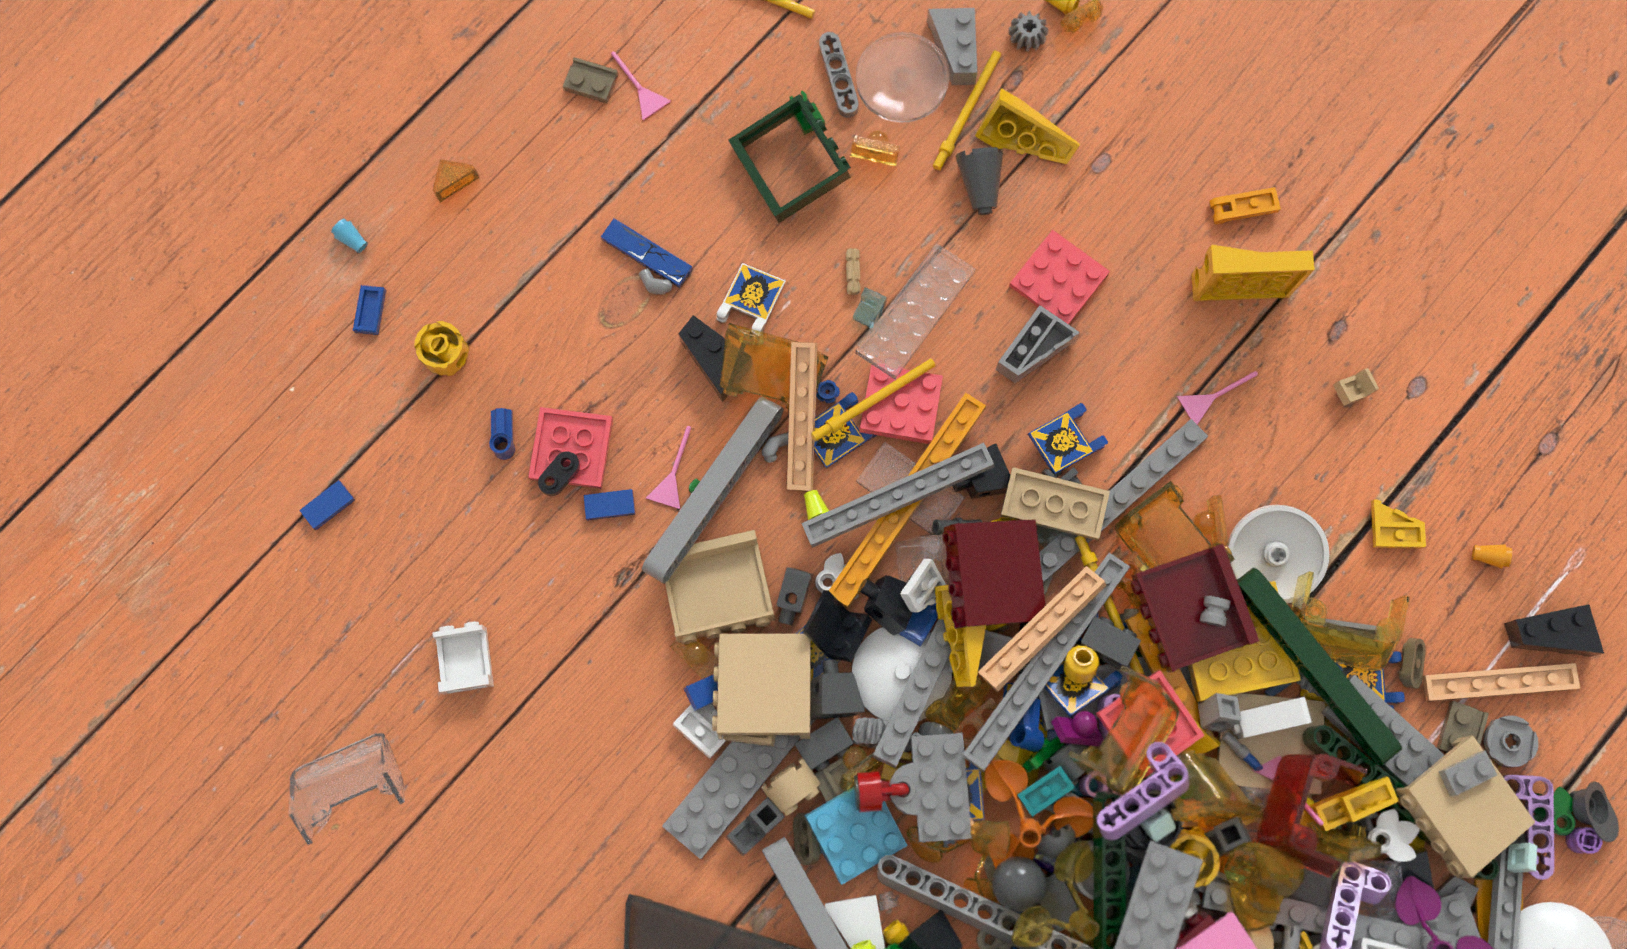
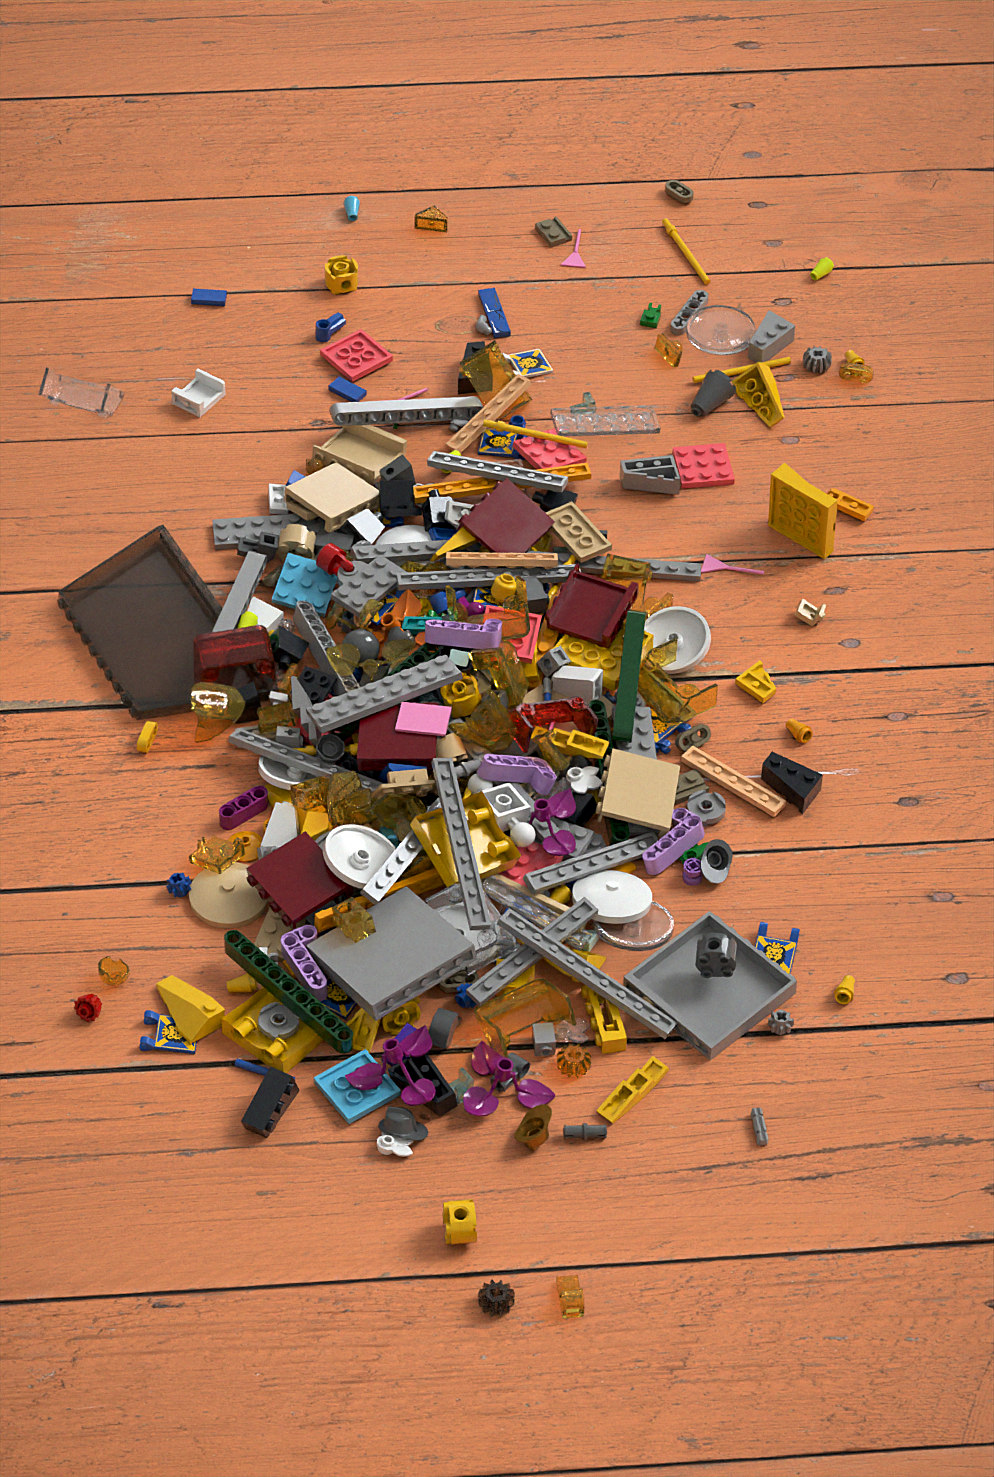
camera: 40 degrees right, 30 degrees down
(369, 310) = (325, 242): blue tile -> none
(560, 474) = (337, 356): black plate -> none
(769, 123) = (612, 300): dark green window -> none
(853, 271) = (595, 387): tan axle -> none
(1062, 441) = (620, 522): flag -> none
(1214, 613) = (600, 612): light grey wheel -> none
(1467, 773) = (655, 771): light grey plate -> none
(1522, 857) = (644, 840): light aqua plate -> none

